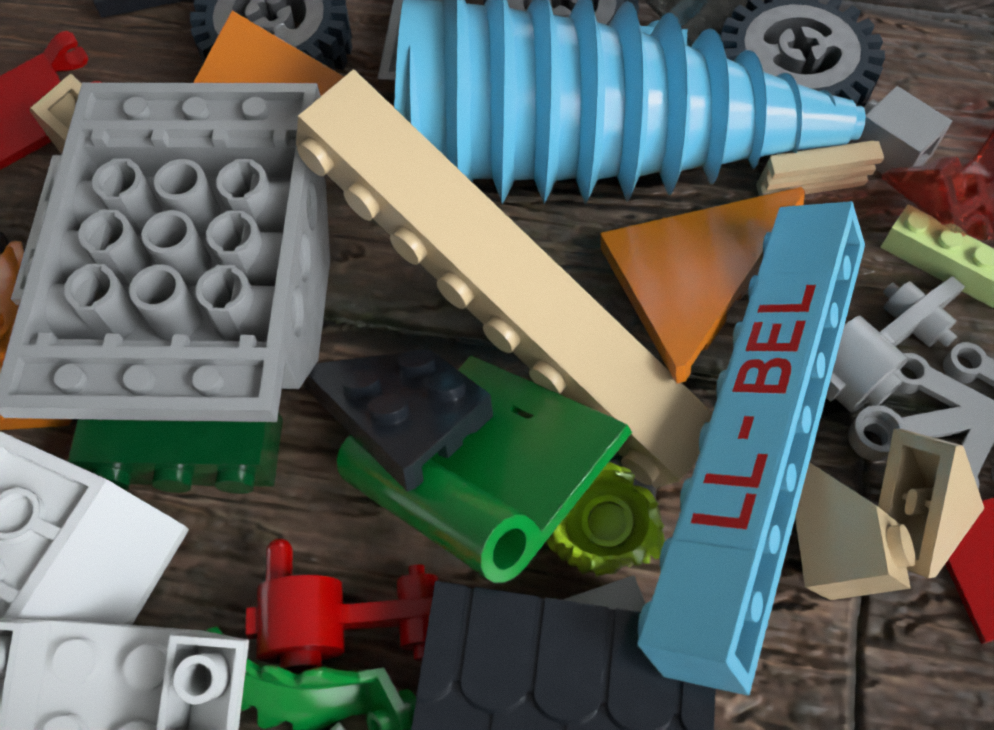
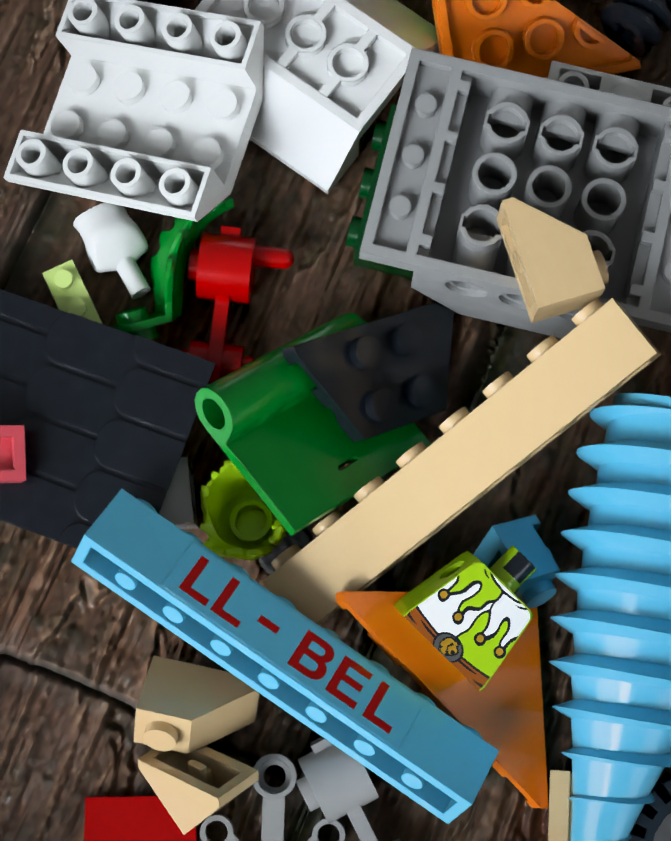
camera: 100 degrees right, 15 degrees up
(258, 200) = (550, 261): none -> tan slope
(584, 237) = (523, 536): none -> medium azure brick
(654, 243) = (472, 611): none -> torso

